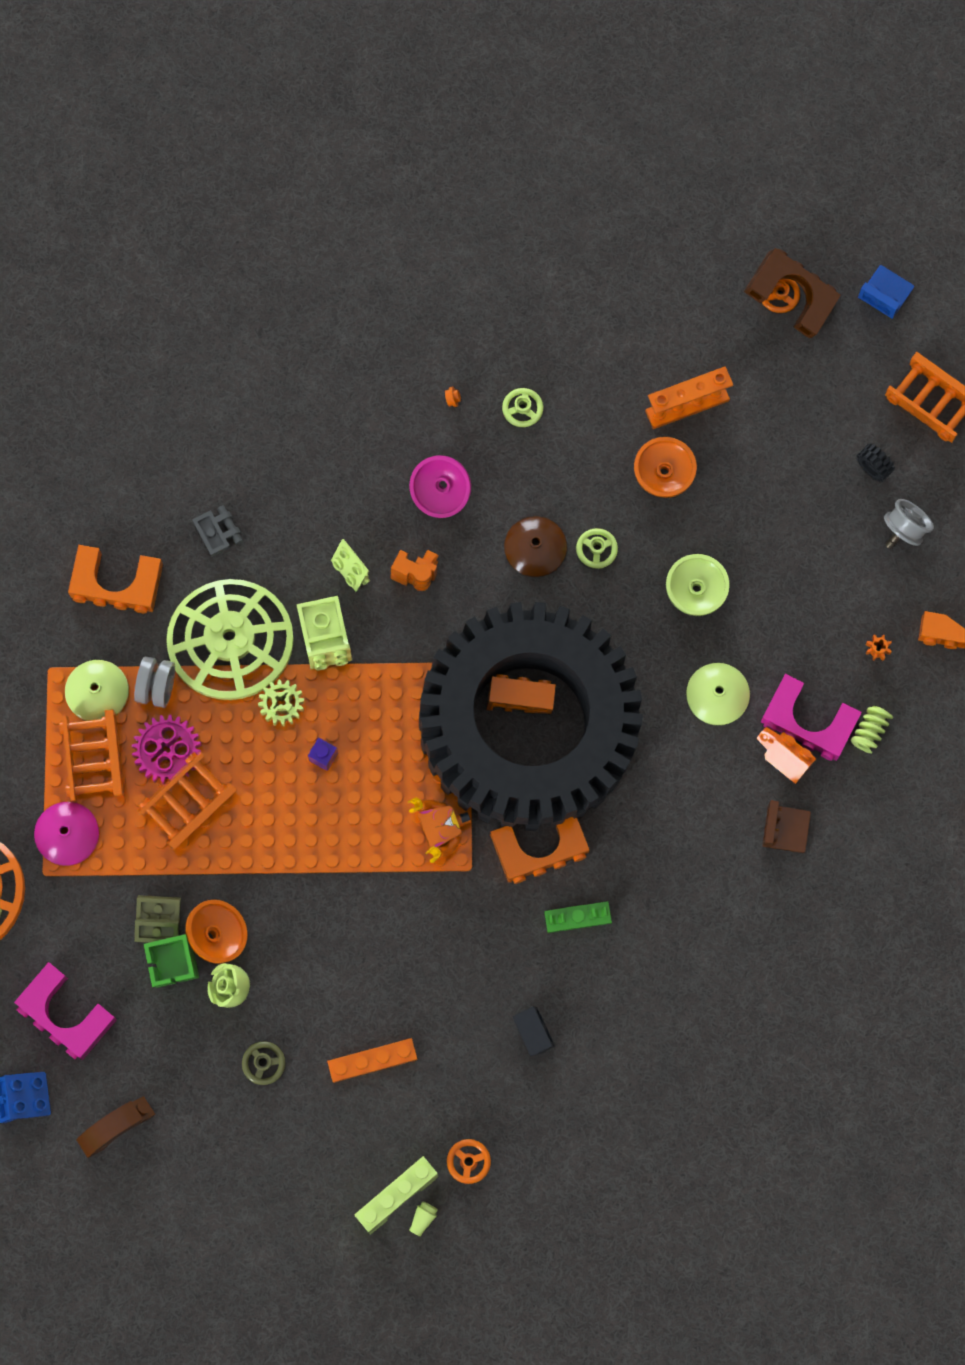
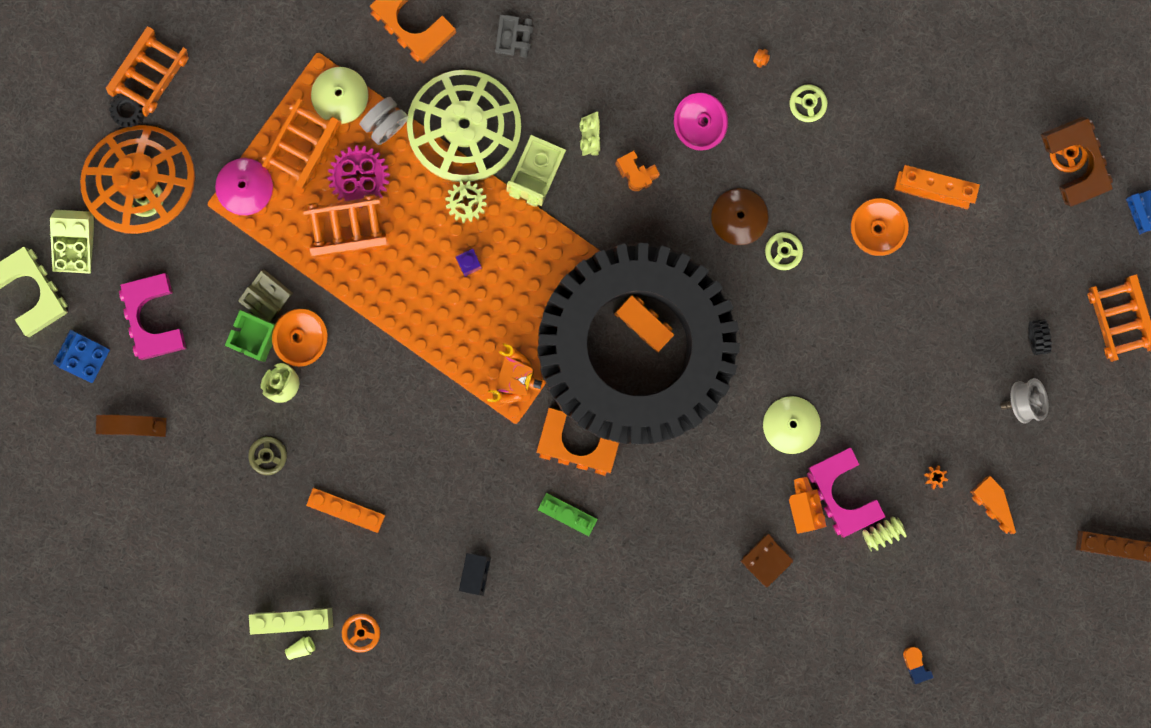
camera: 35 degrees right, 10 degrees up
(702, 572) = (849, 329): yellowish green dish -> none

